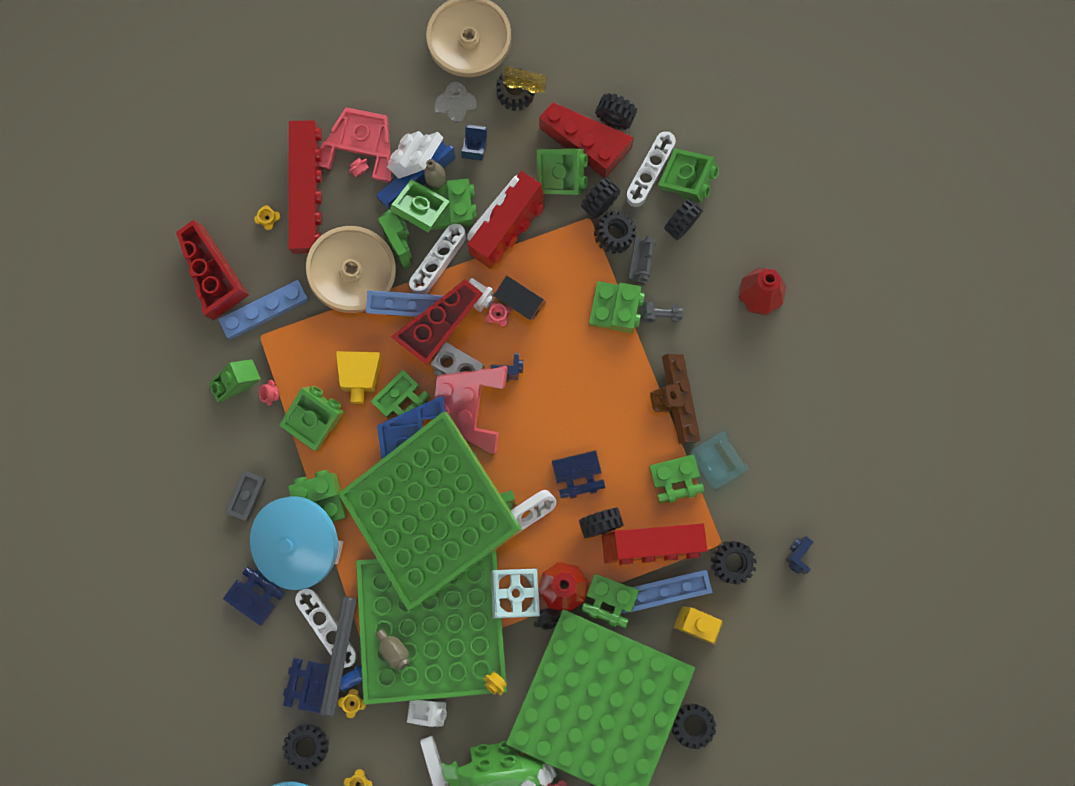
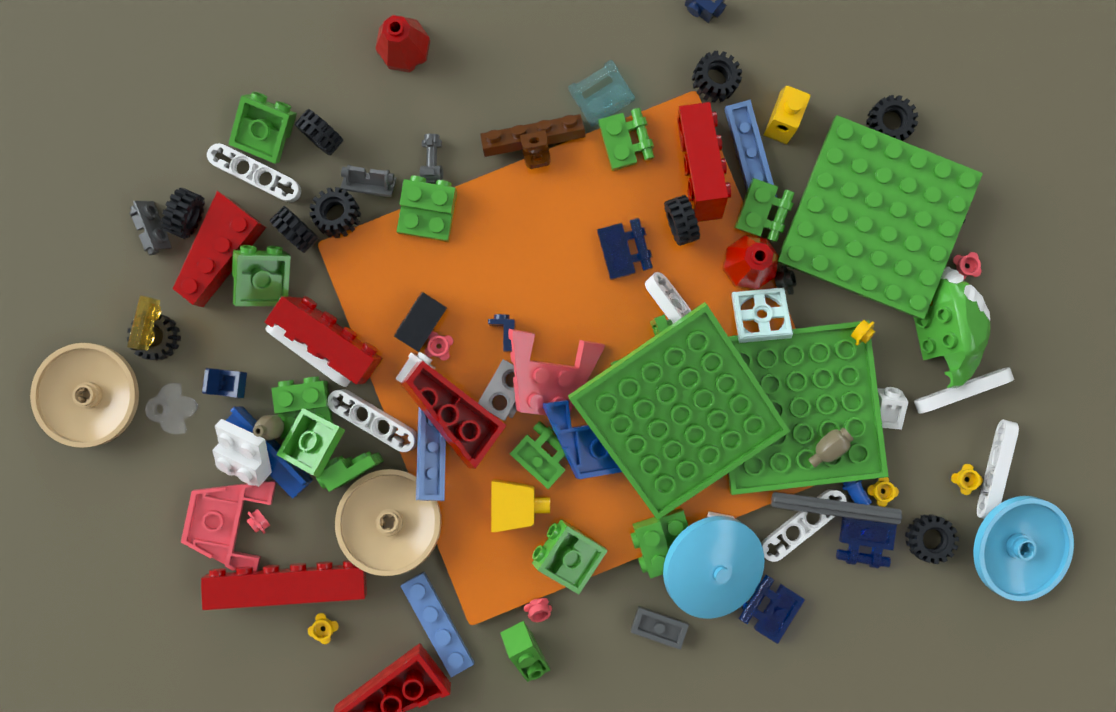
camera: 90 degrees left, 10 degrees up
(613, 84) = (147, 217): none -> dark grey hinge

